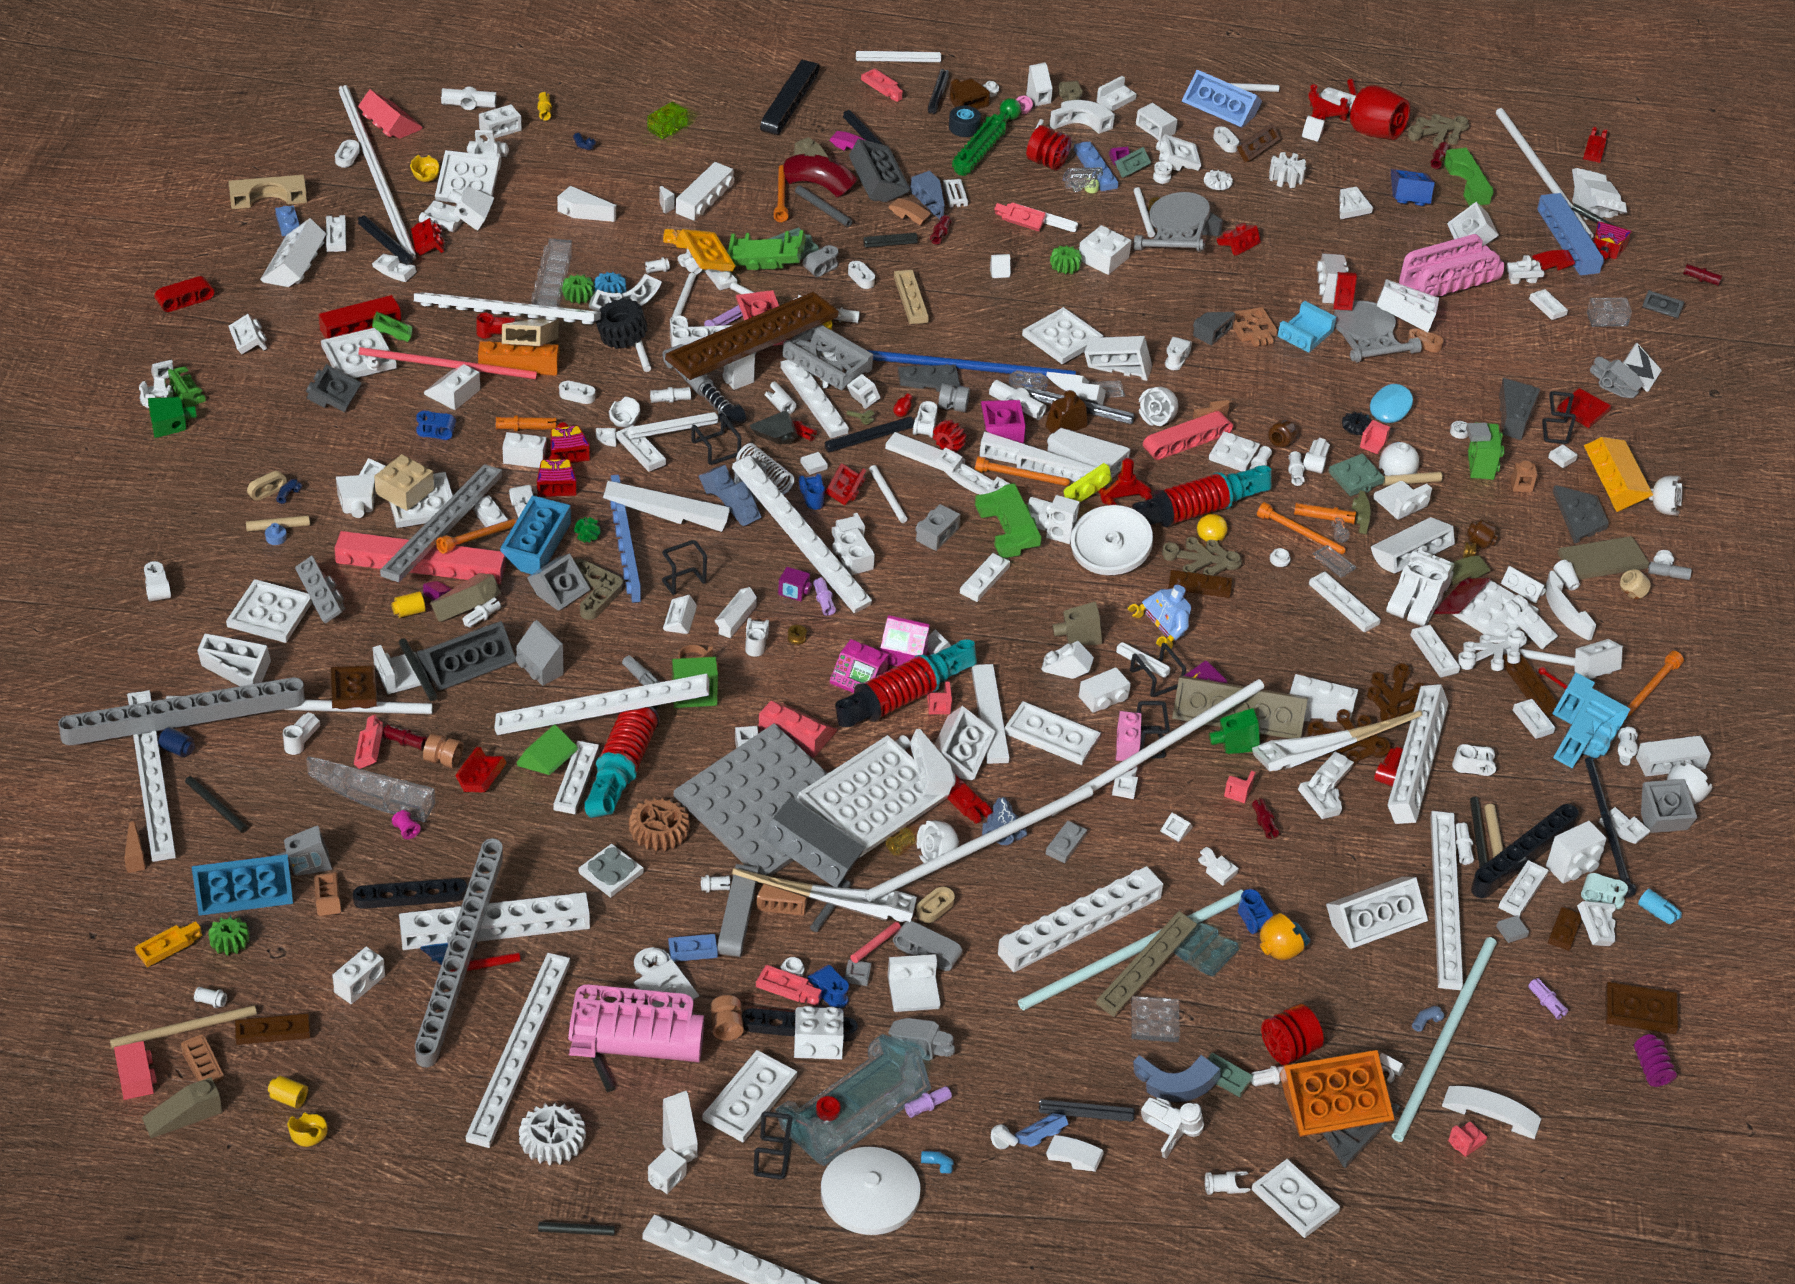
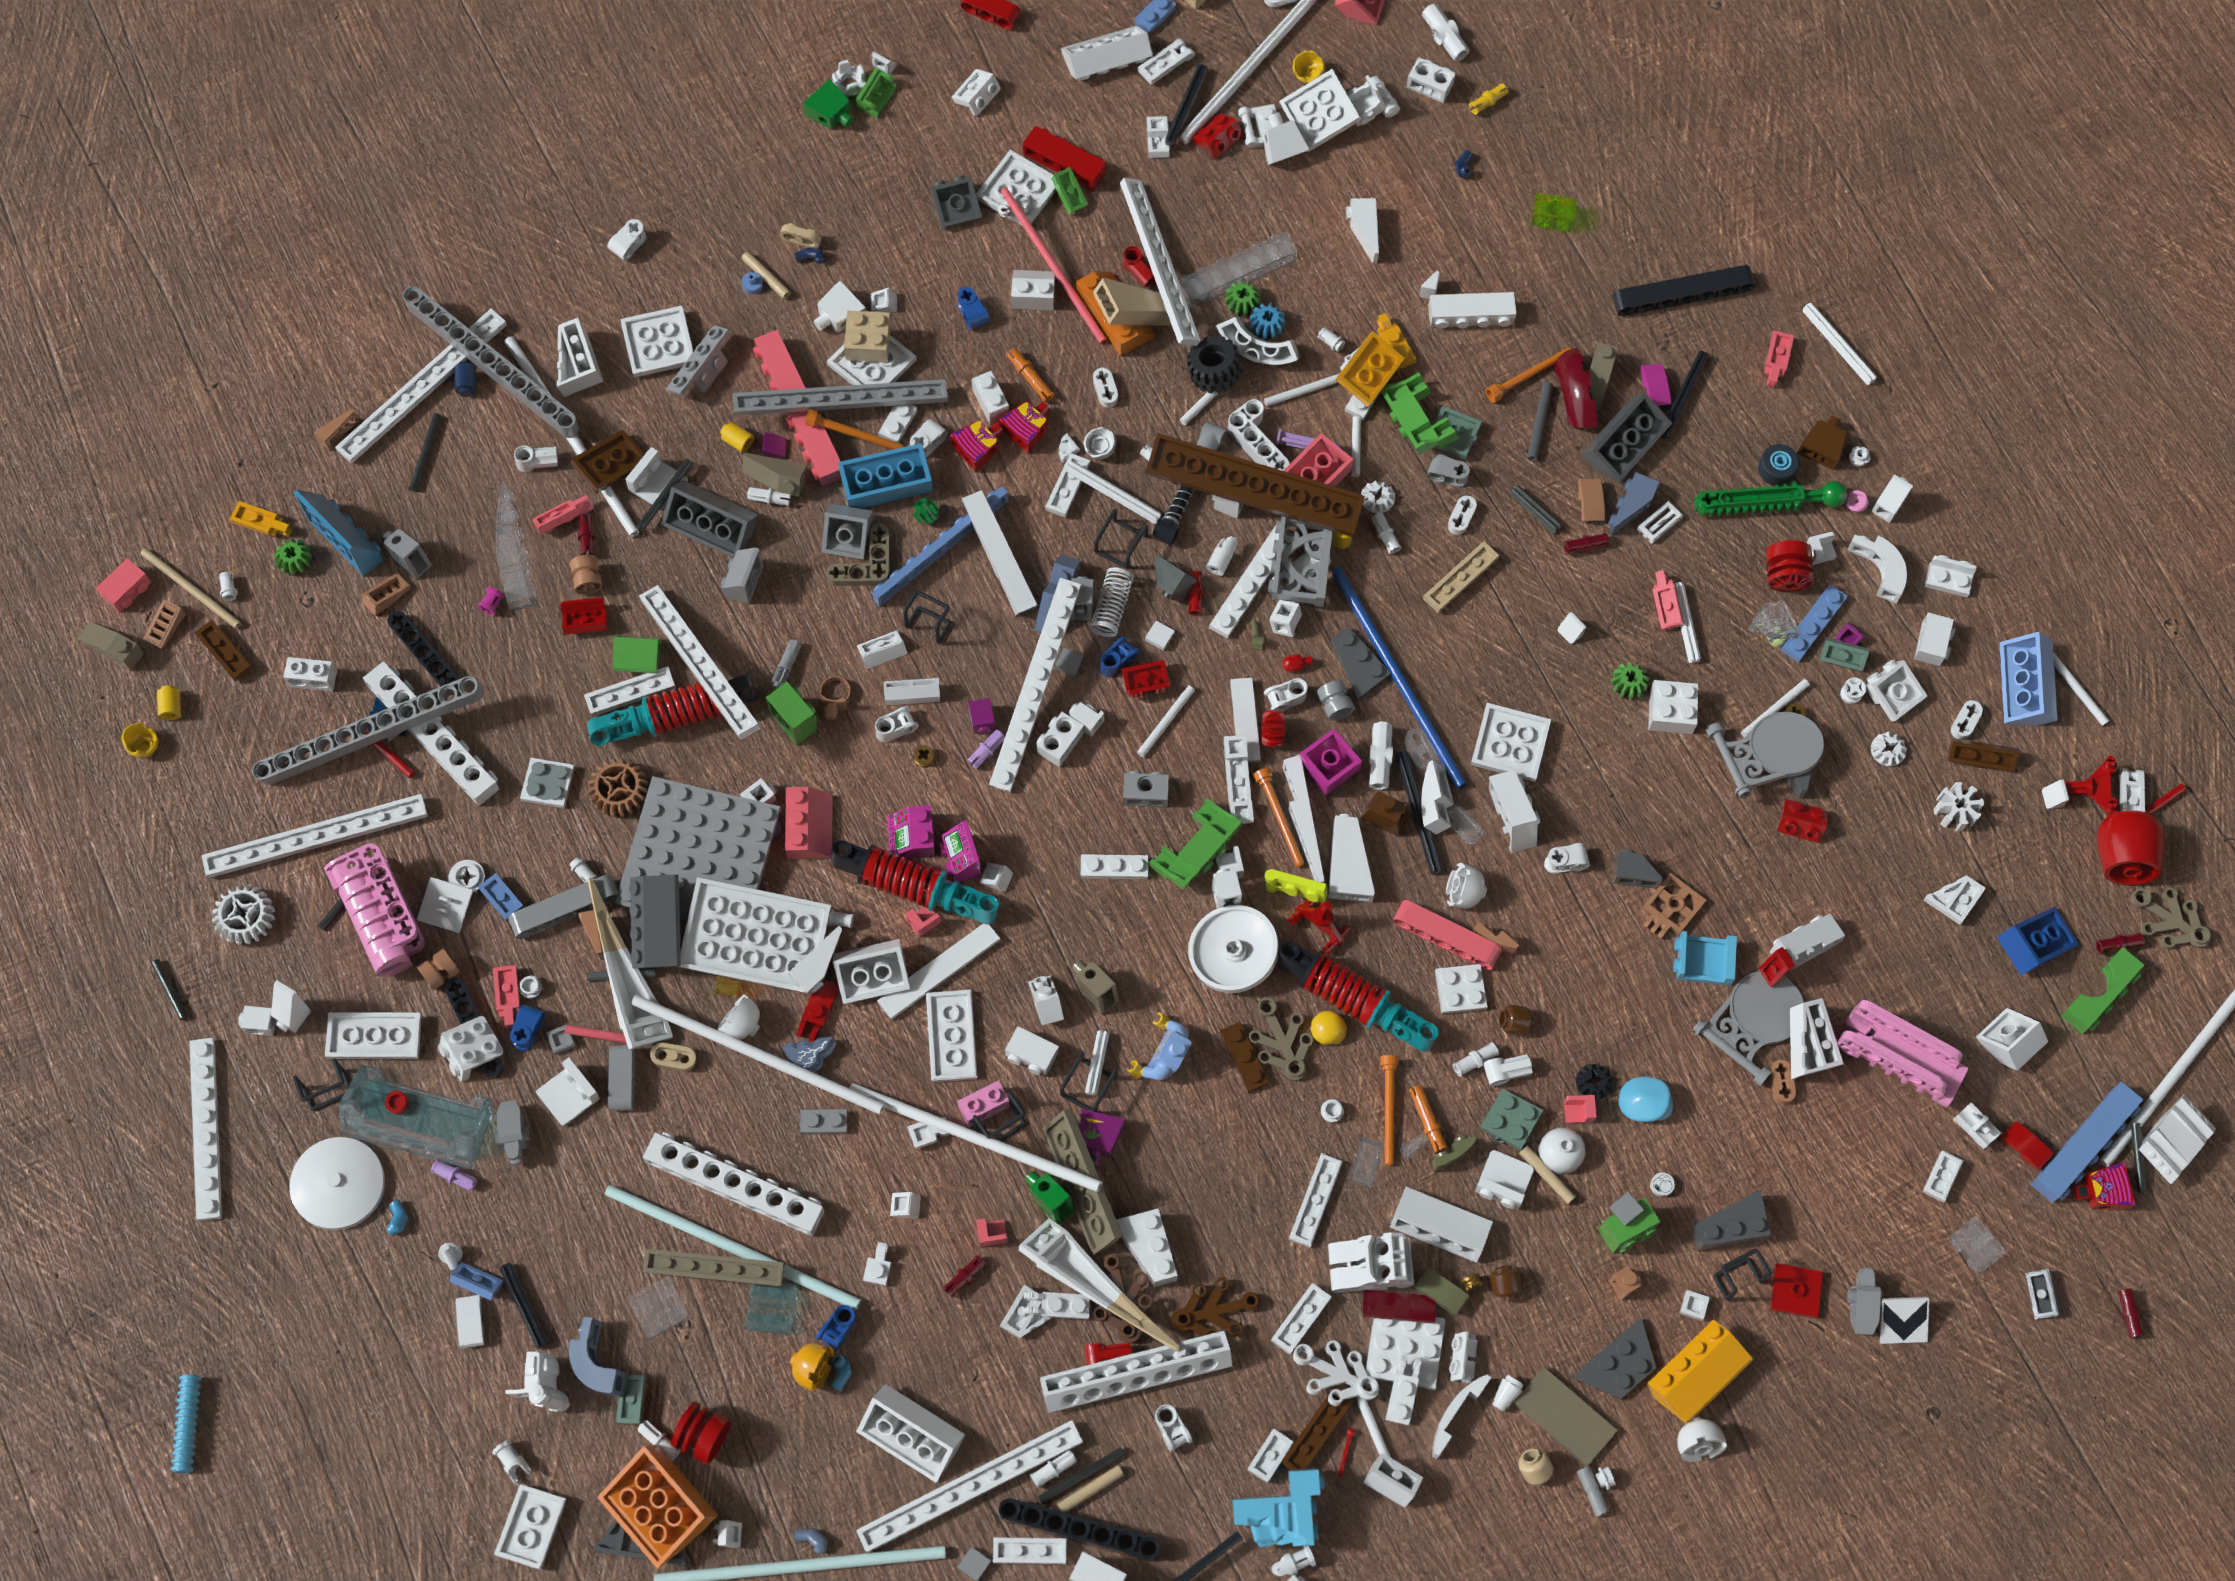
camera: 60 degrees right, 25 degrees up
(869, 434) = (1234, 657): black axle -> none
(938, 91) = (1813, 412): black axle -> none
(1070, 90) = (1915, 532): dark tan piece -> none
(1262, 457) = (1457, 1021): white pin -> none
(1672, 661) = (1450, 1553): orange piece -> none

